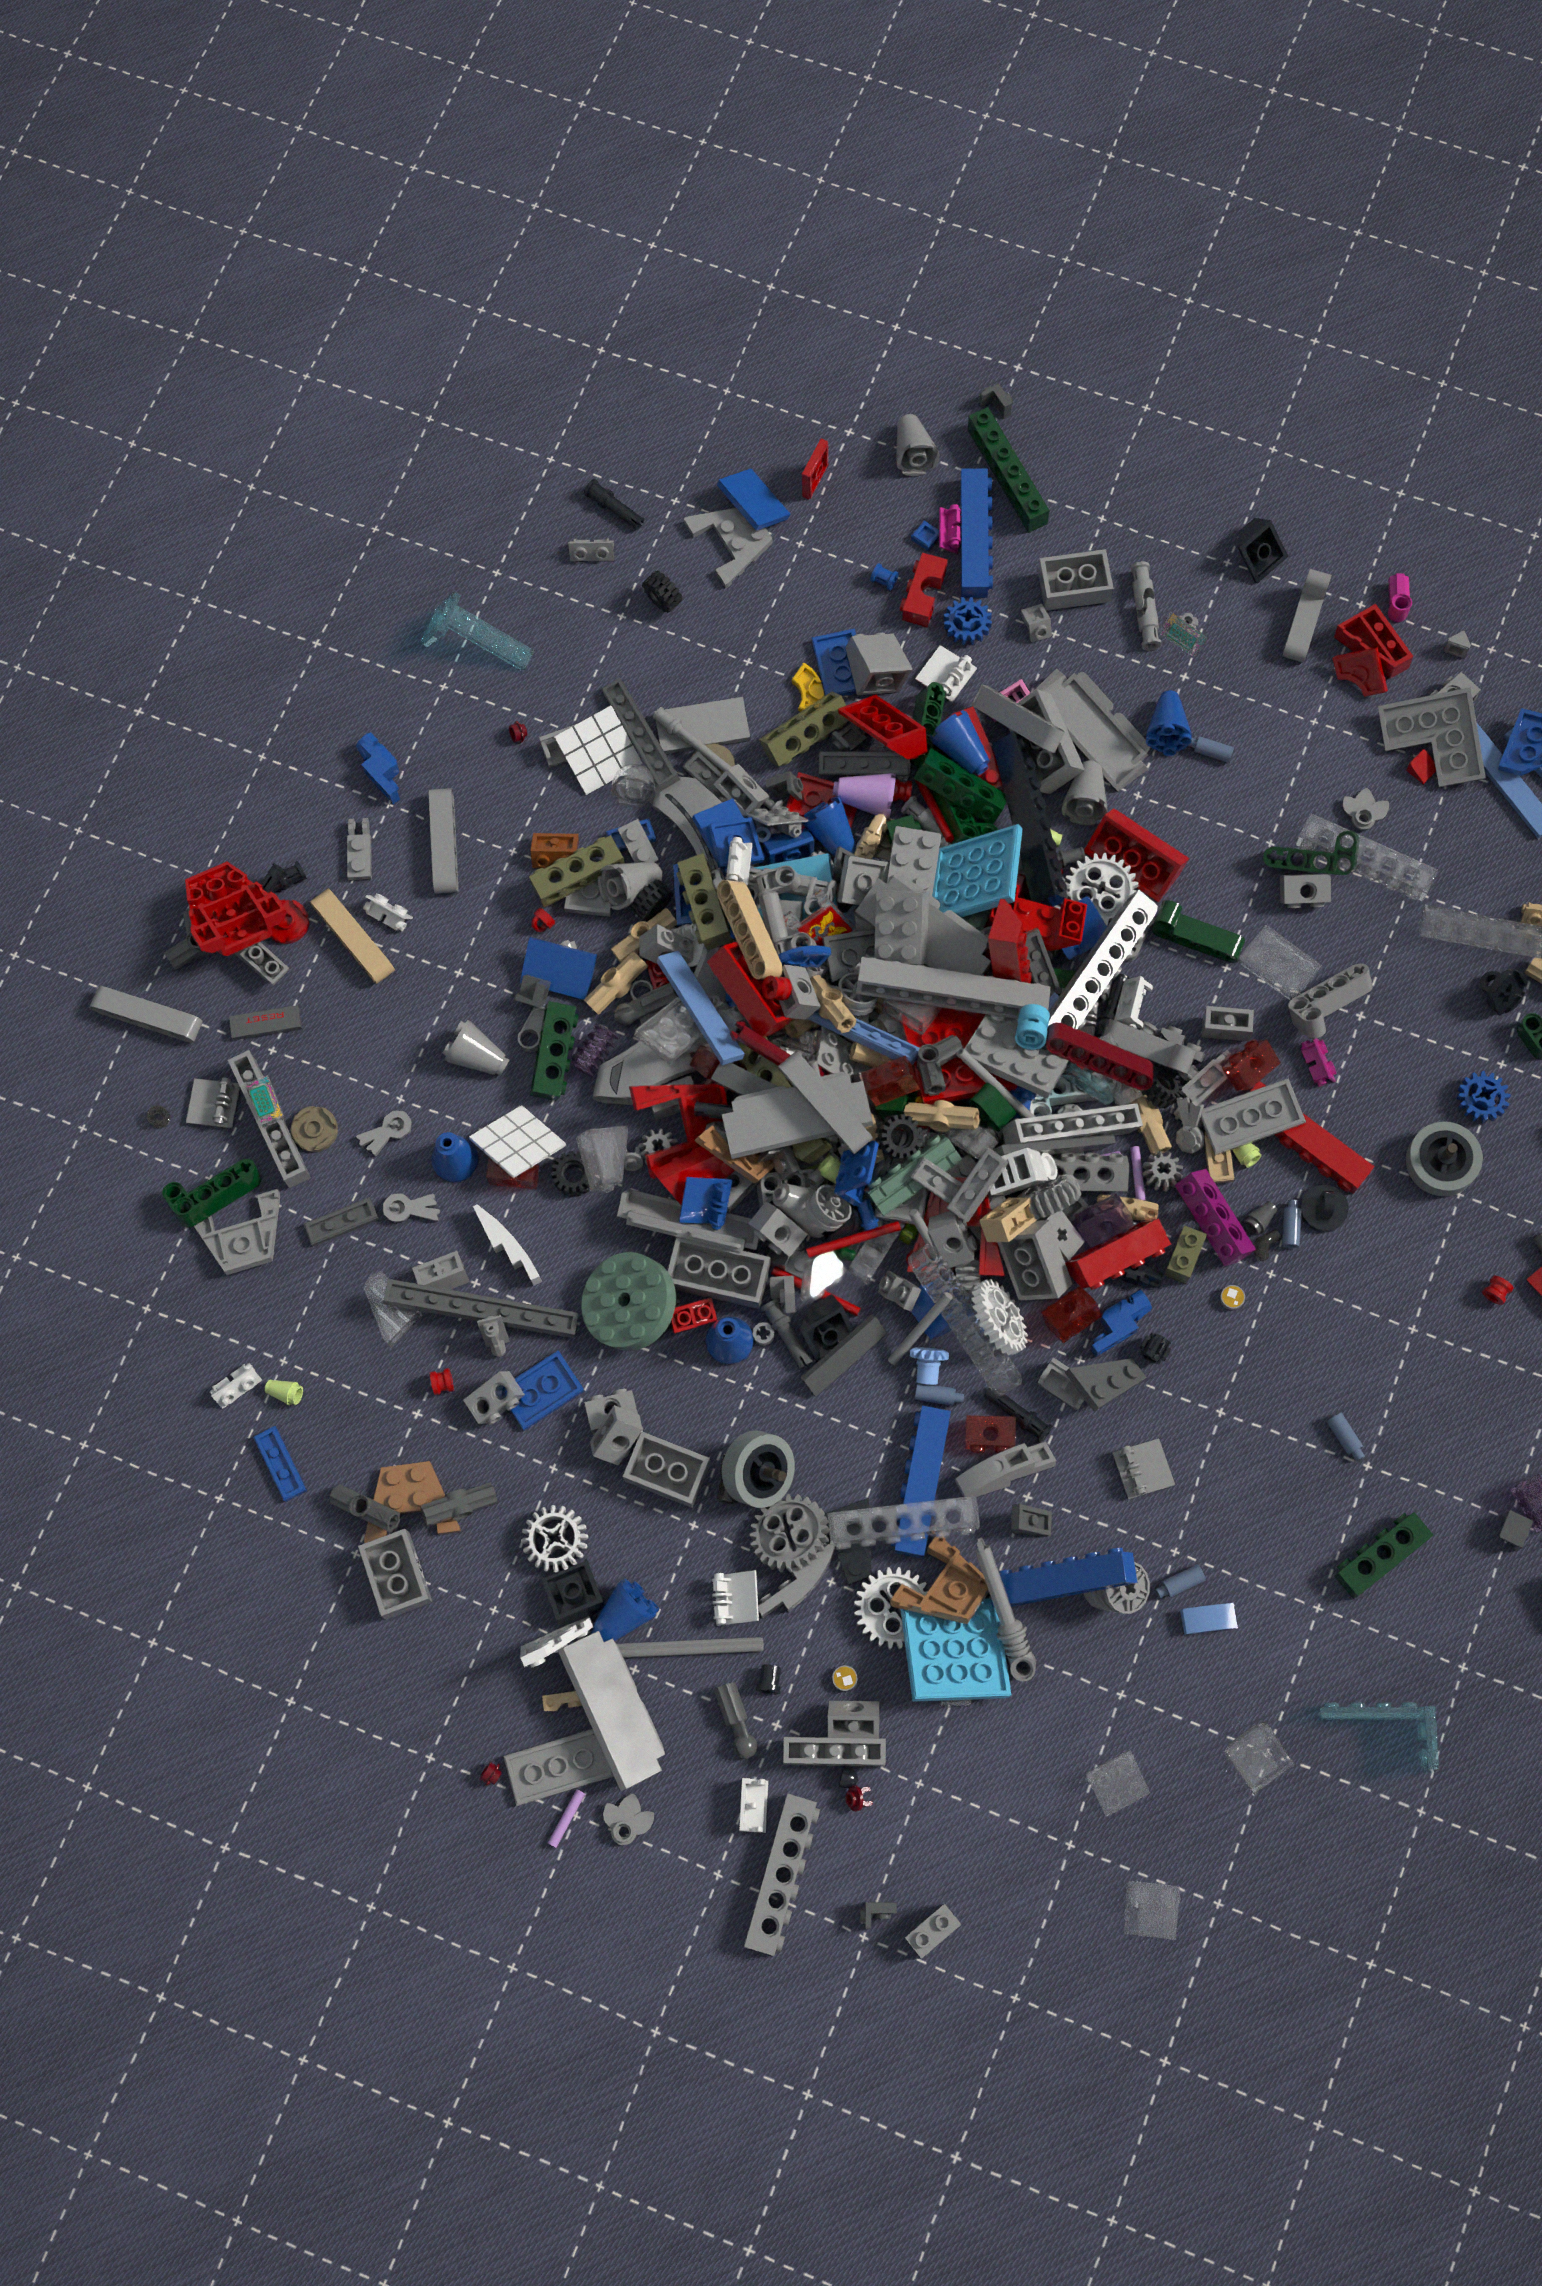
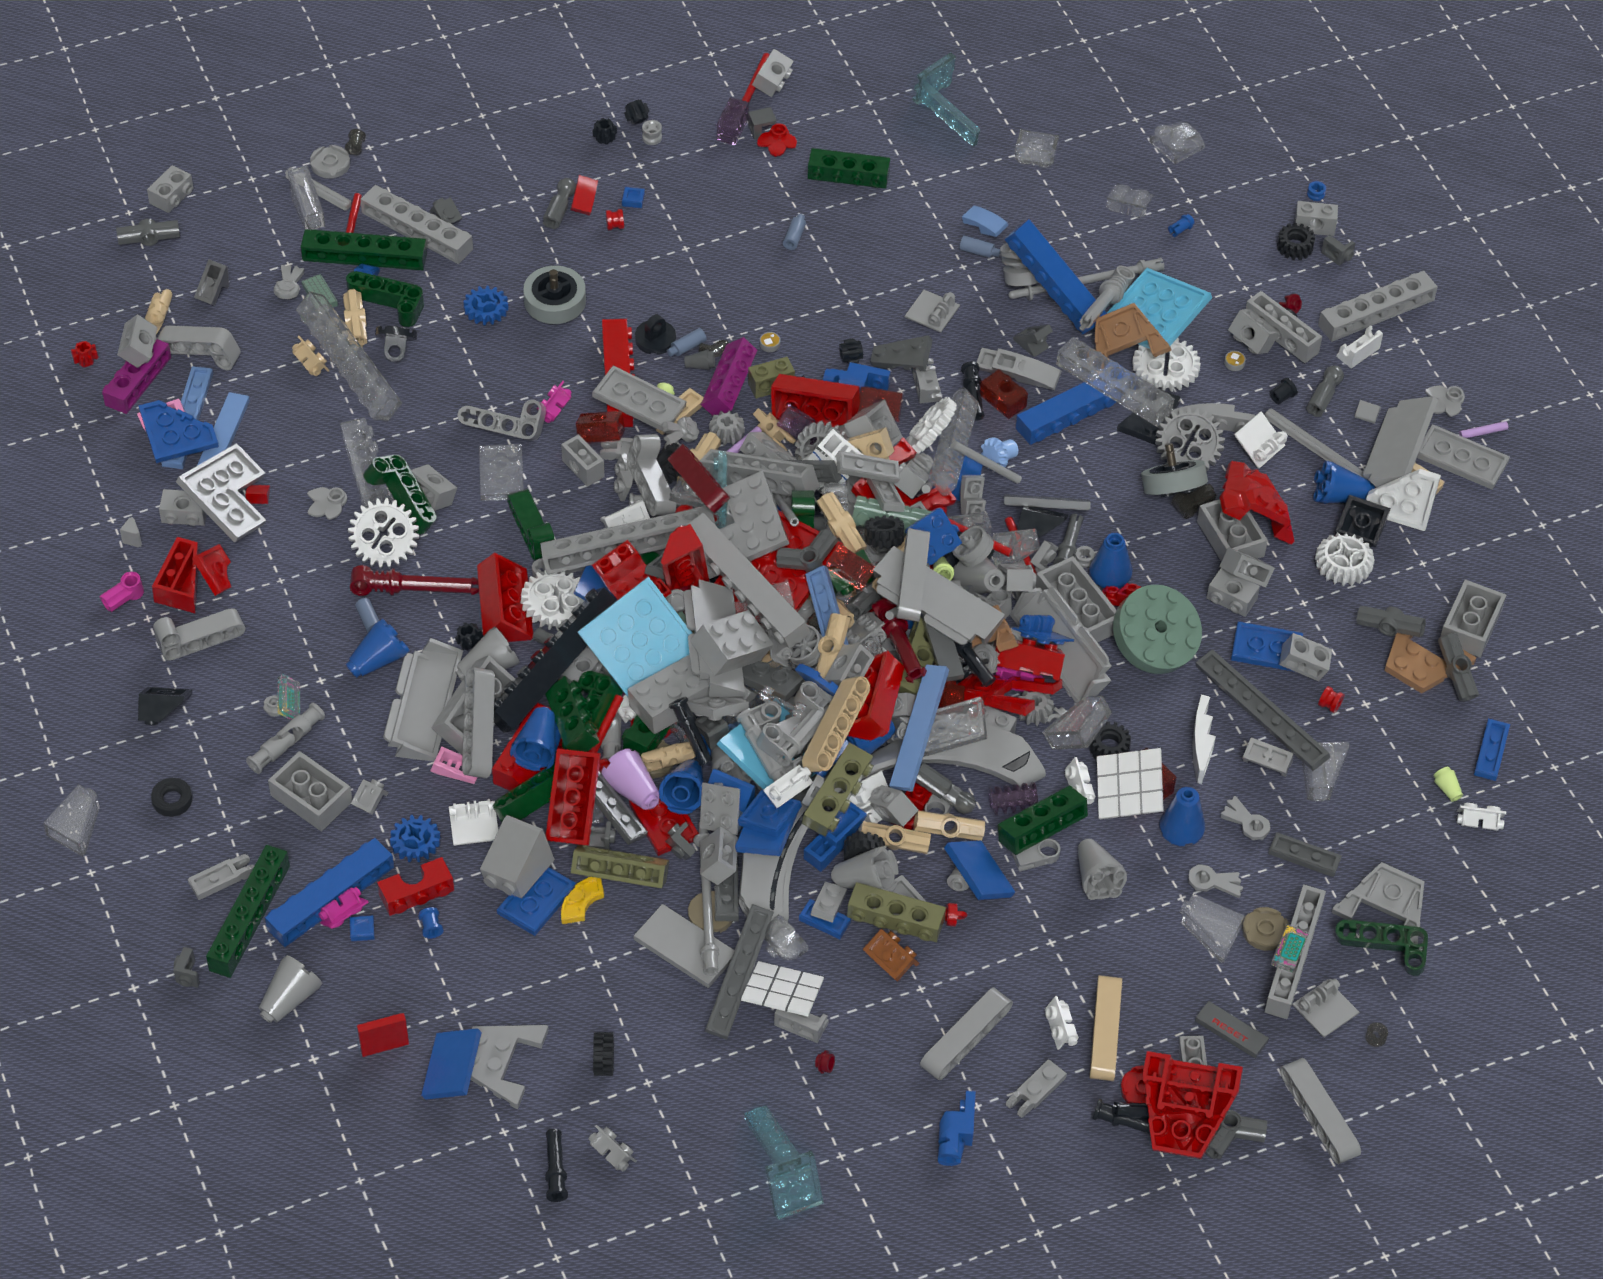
camera: 140 degrees left, 20 degrees down
(352, 1088) = (1211, 925): none -> clear slope
(490, 1774) = (1511, 483): dark red plate -> none
(494, 1334) = (1268, 685): light grey hinge -> none
(533, 991) = (1014, 871): dark grey panel -> none
(554, 1112) = (1077, 777): none -> white hinge
(675, 1515) = (1254, 491): none -> red wedge
(682, 1737) = (1367, 411): none -> light grey slope
(776, 988) = (856, 669): red wheel -> none
(873, 850) = (686, 719): none -> black pin
(938, 1394) = (1006, 432): sand blue cylinder -> none
(939, 1877) = (1298, 233): none -> black tyre
(969, 1986) = (1321, 189): none -> blue bush
(1023, 1704) = (1029, 291): none -> light grey bar
(1032, 1026) = (725, 512): medium azure wheel -> none
(1041, 1798) = (1181, 225): none -> blue pin
(1058, 475) = (220, 876): none -> light grey hinge
(1123, 799) = (468, 636): none -> black gear
(1168, 486) = (176, 808): none -> black tyre
(1198, 420) = (74, 820): none -> clear slope
(1229, 788) = (364, 580): none -> dark red piece
(1301, 805) = (367, 522): none -> white gear
(1478, 1525) = (777, 140): none -> red plate
(1516, 1336) = (633, 197): none -> blue tile

